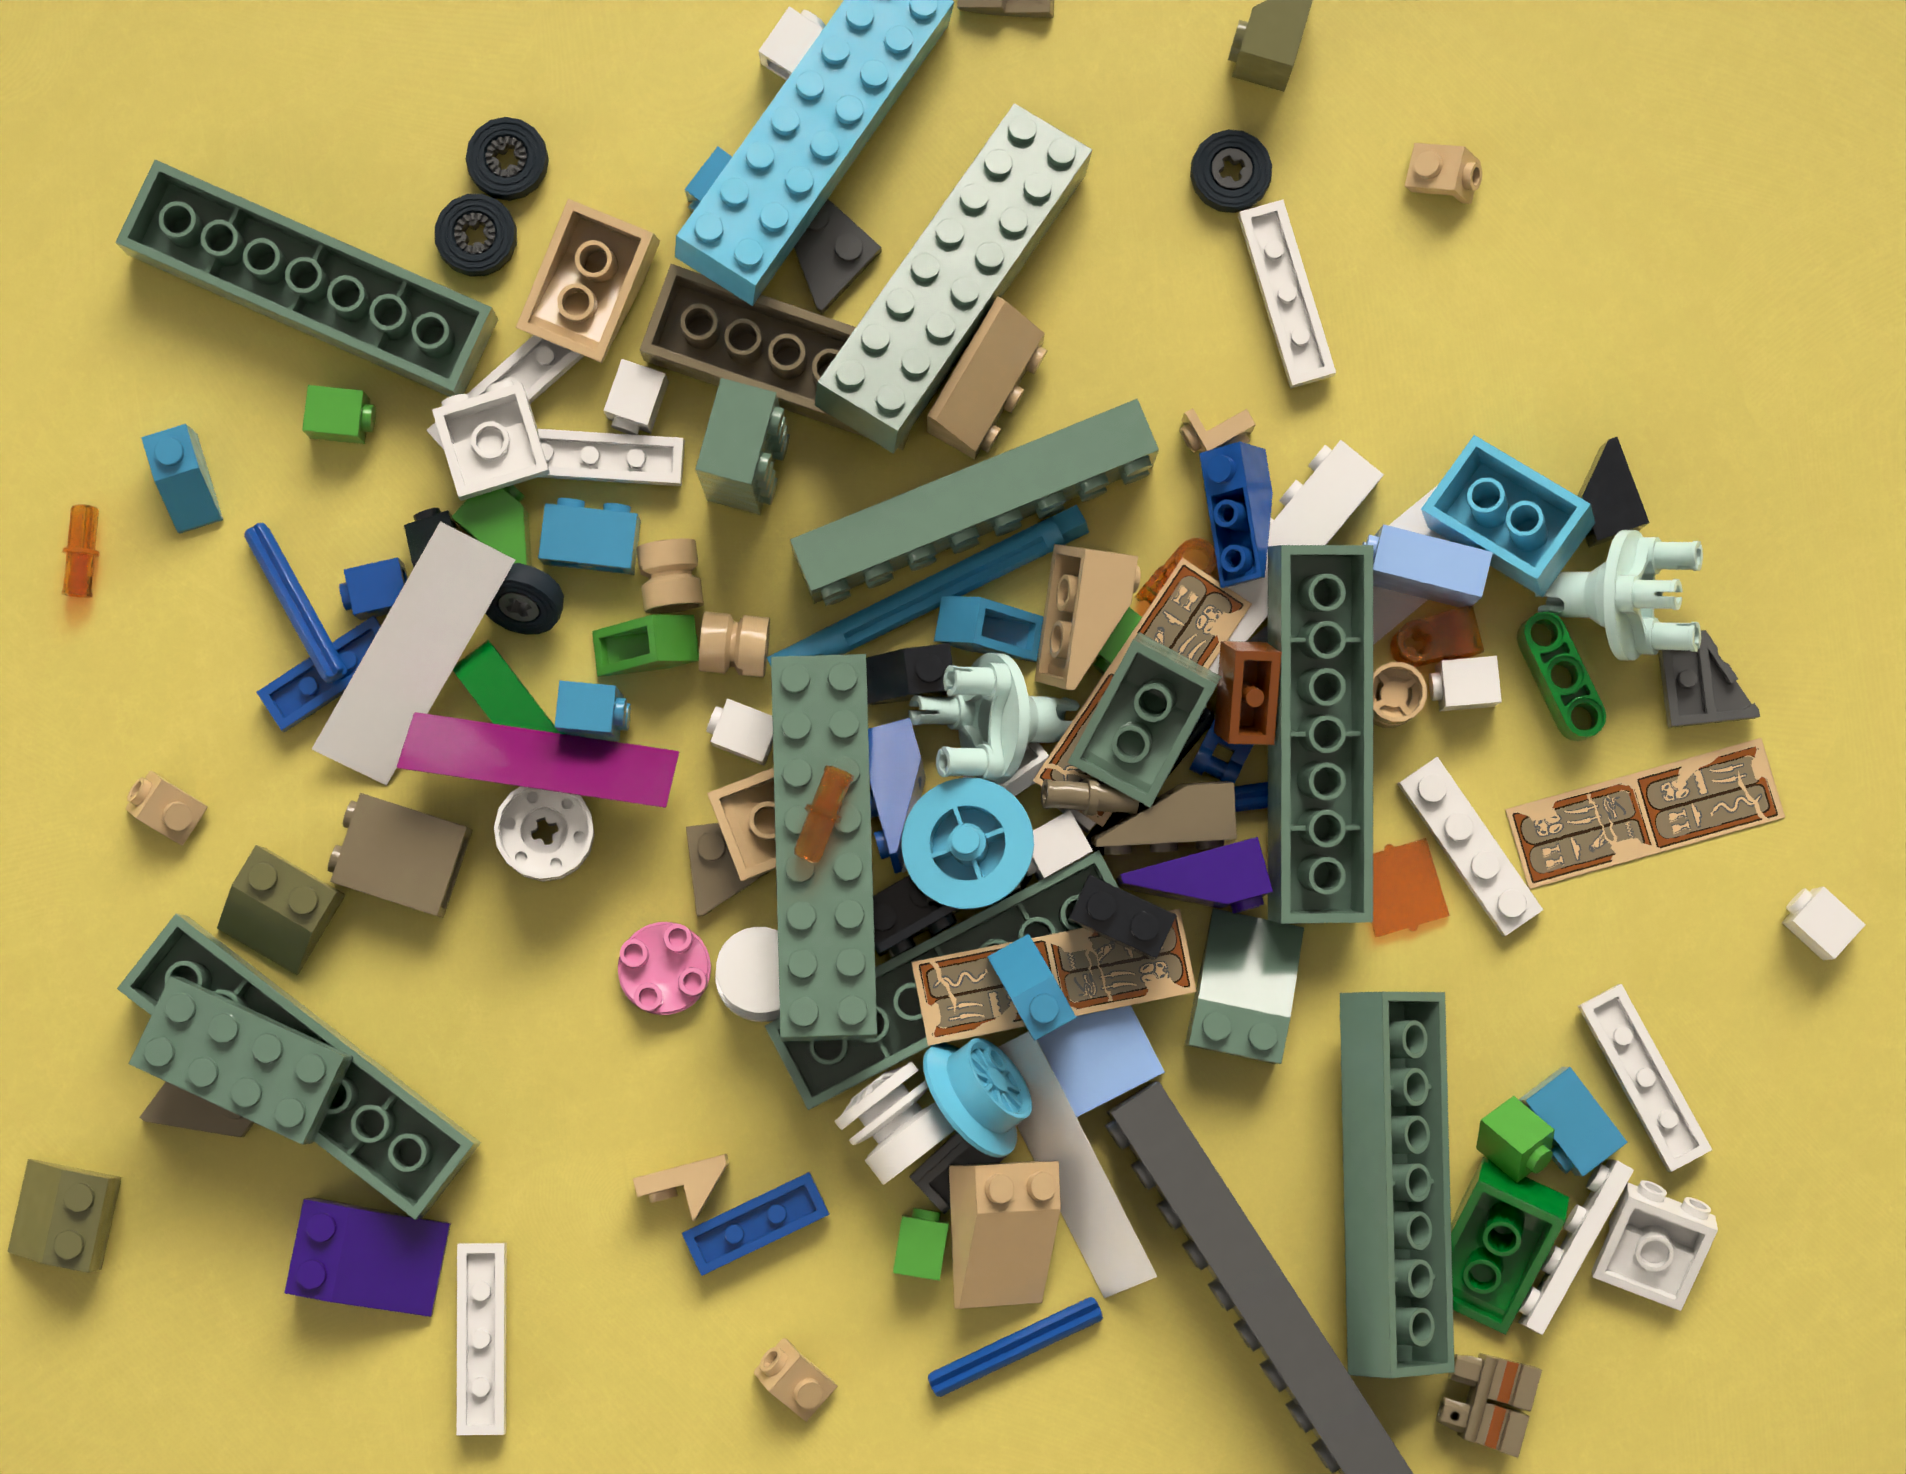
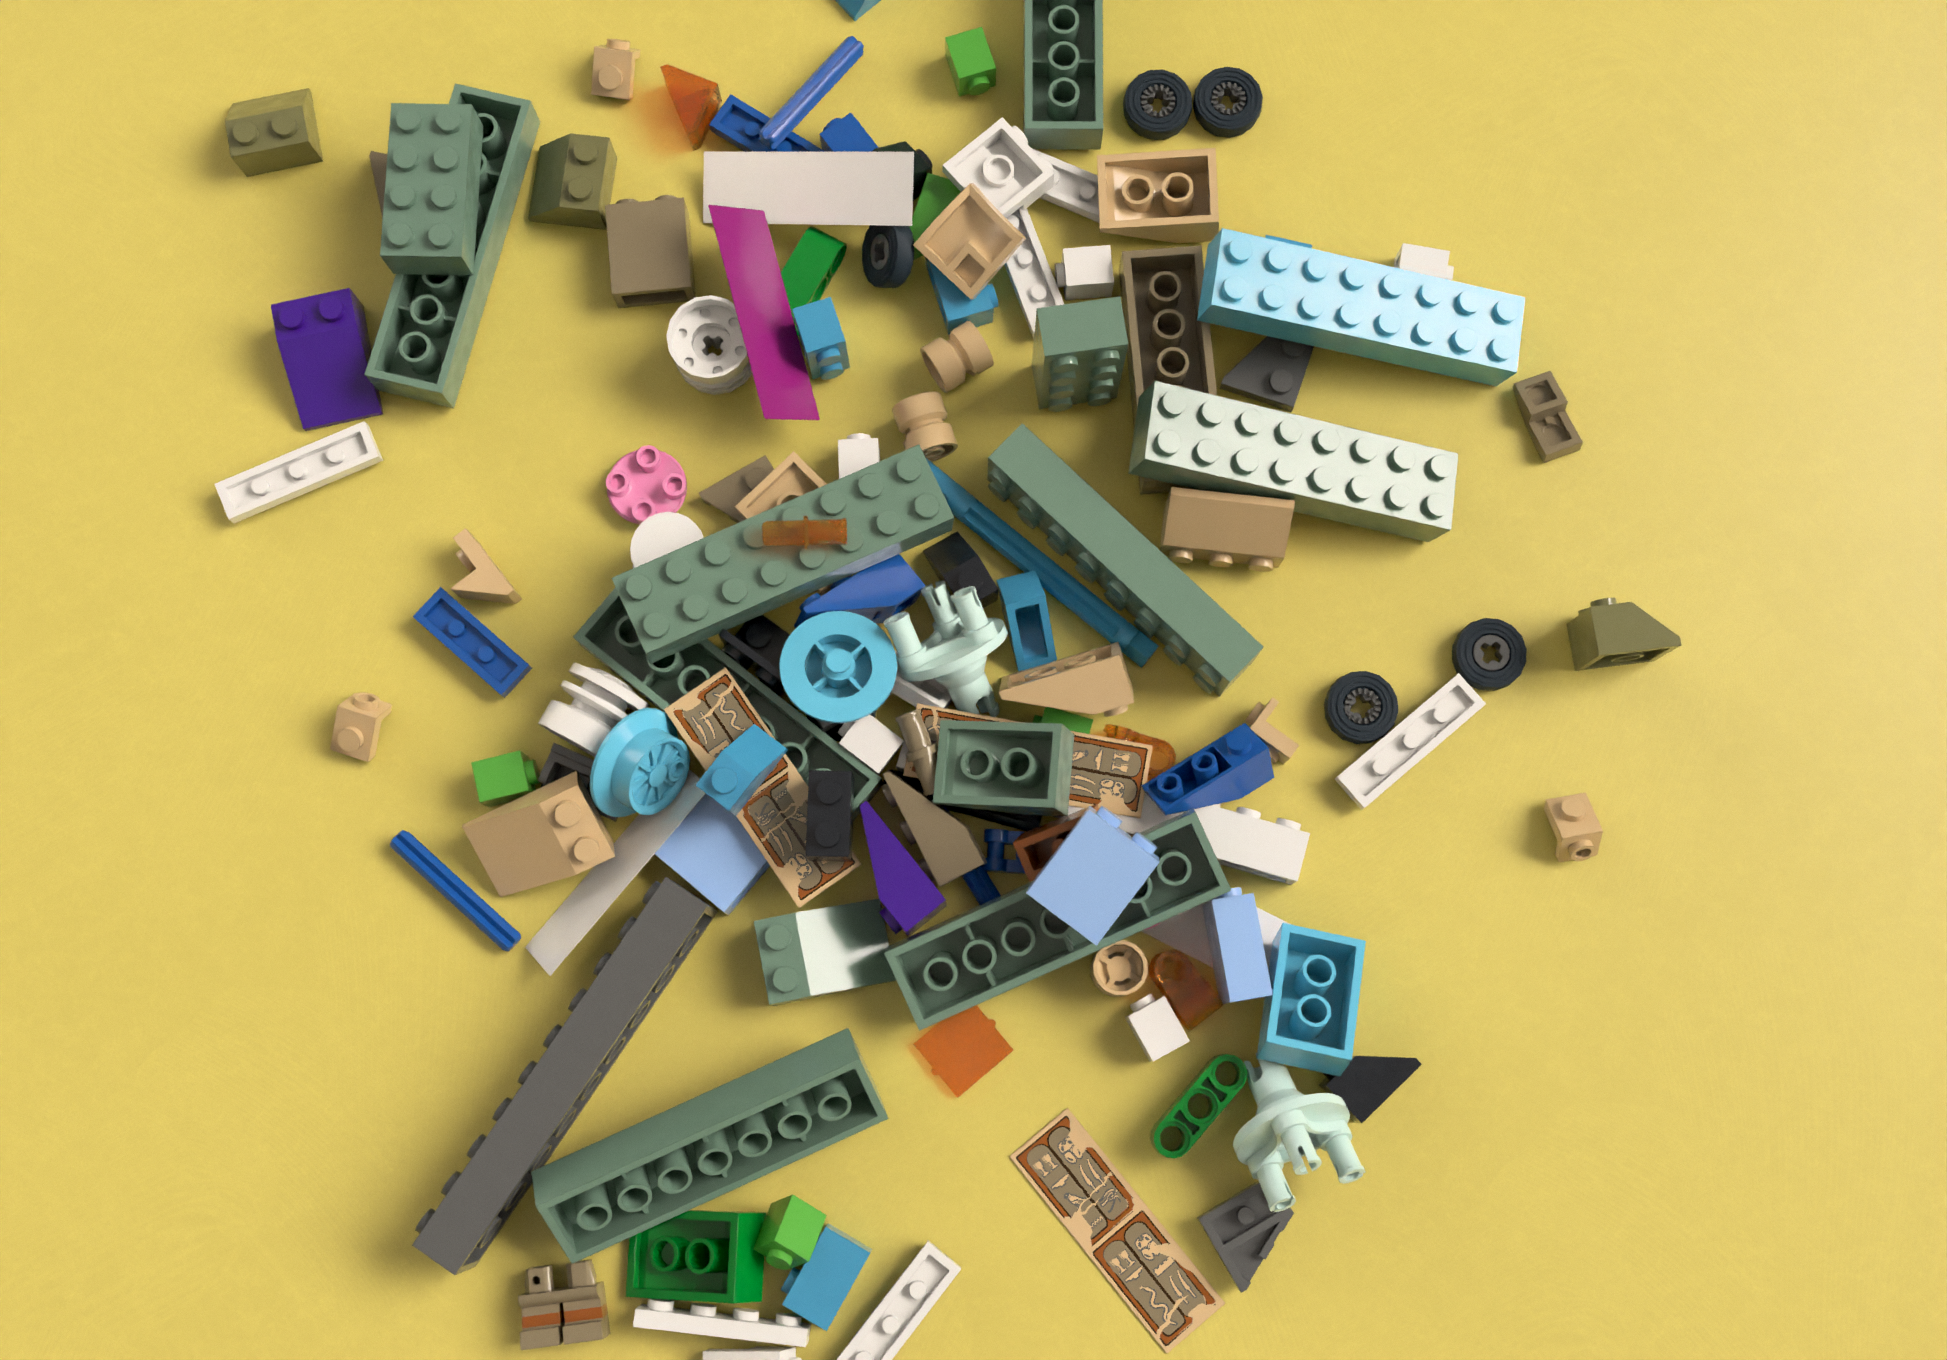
camera: 70 degrees right, 5 degrees down
(244, 737) = (694, 100): none -> clear orange slope
(559, 505) = (970, 241): none -> tan plate
(645, 644) = (895, 362): bright green slope -> none
(1248, 314) = (1371, 690): none -> black bush
(1301, 674) = (1094, 873): none -> light blue brick
(1470, 847) = (1022, 1091): white plate -> none

